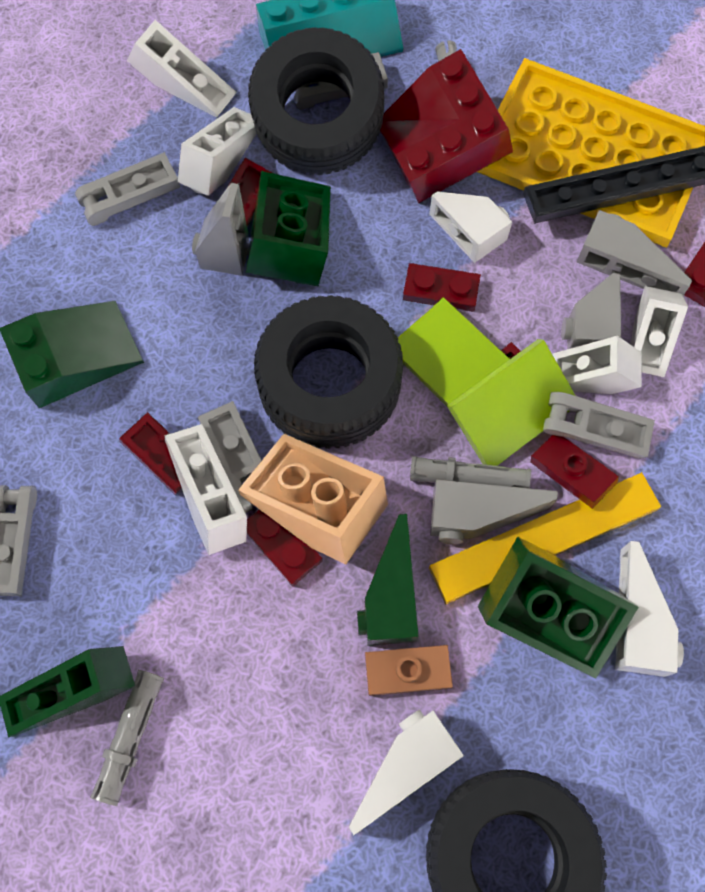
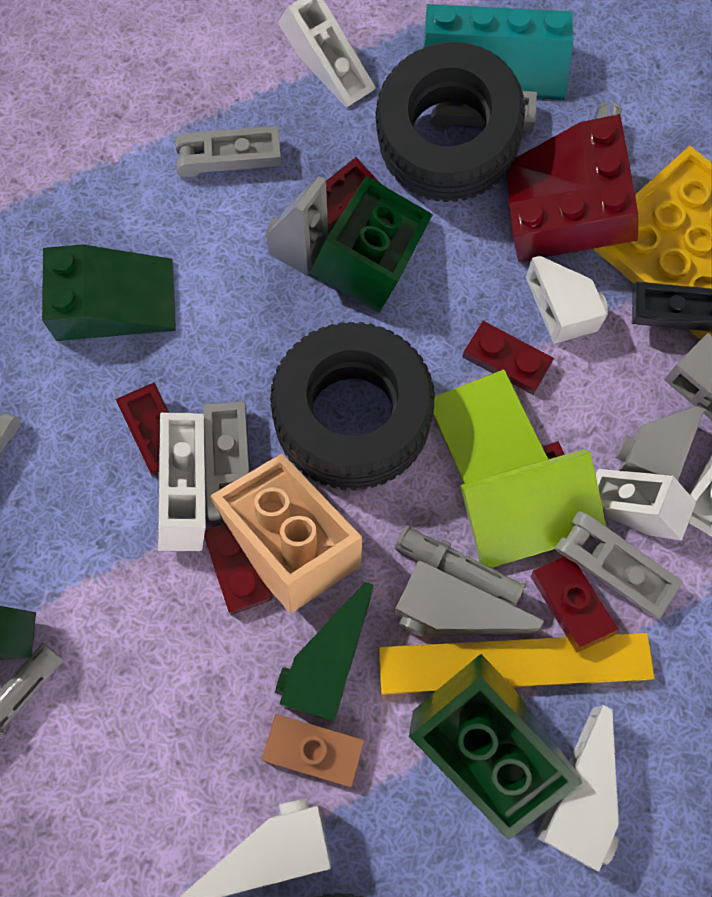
camera: 20 degrees right, 0 degrees up
(215, 151) = (328, 141): white slope -> none

